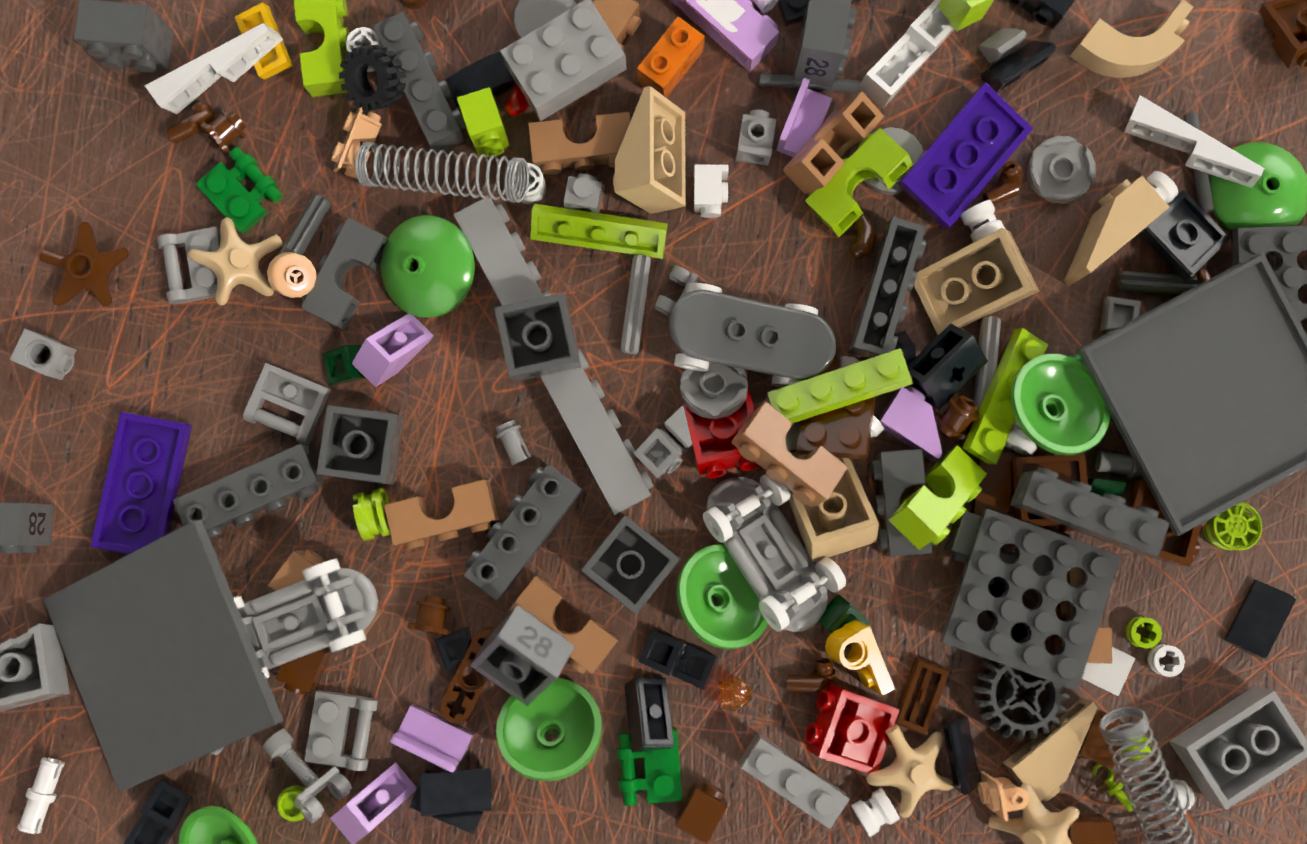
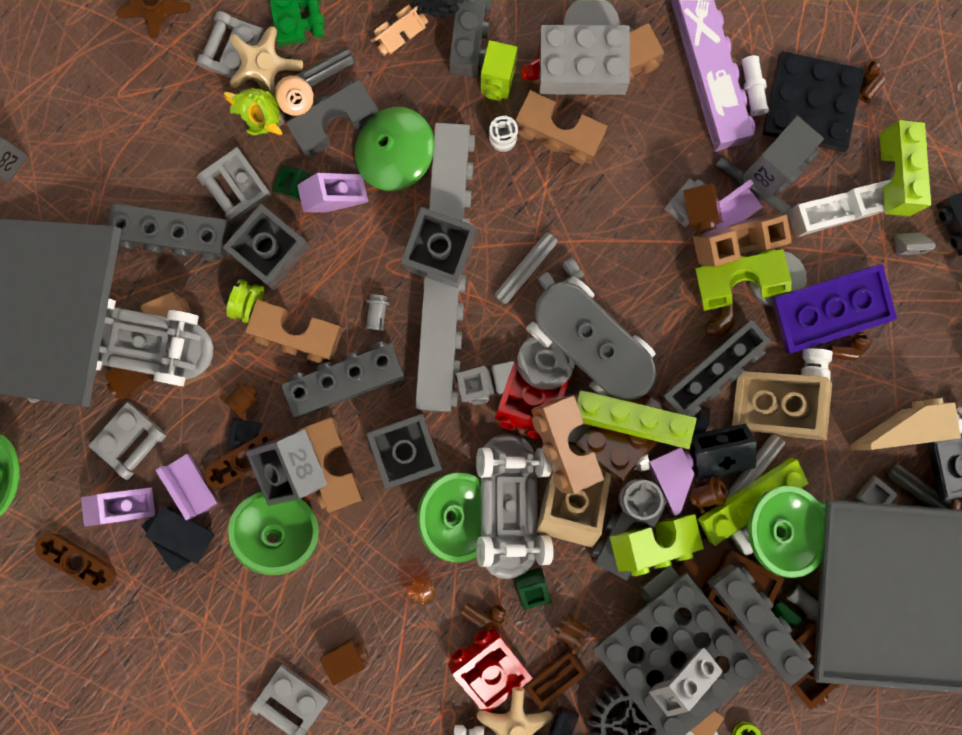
camera: 30 degrees right, 0 degrees up
(30, 354) = (81, 36): light grey brick -> none
(140, 483) = (97, 177): dark purple plate -> none
(263, 312) = (258, 110): none -> lime hair
(286, 802) = (63, 471): lime plate -> none
(310, 807) = (78, 424): light grey bar -> none
(380, 165) = (403, 58): light grey piece -> none
(480, 75) = (522, 35): black slope -> none
(584, 193) = (537, 167): light grey brick -> none
(598, 231) = (532, 199): lime plate -> none
(648, 714) = (350, 567): black slope -> none
(653, 155) = (605, 168): tan slope -> none
(661, 772) = (336, 610): green plate -> none
(671, 57) = (662, 106): orange brick -> none
(678, 659) = (397, 542): black slope -> none
(710, 190) = (631, 218): white brick -> none
(775, 134) = (703, 207): none -> reddish brown brick
(793, 781) = (423, 681): light grey arch -> none
(862, 656) = (531, 622): yellow plate -> none
(896, 463) = (641, 499): none -> light grey wheel
(910, 639) = (572, 632): none -> reddish brown brick
(1018, 64) = (915, 266): black slope -> none
(1059, 618) = (688, 685): none -> light grey bracket
(1061, 169) = (899, 362): light grey tile -> none
(1234, 528) = (861, 703): lime wheel -> none

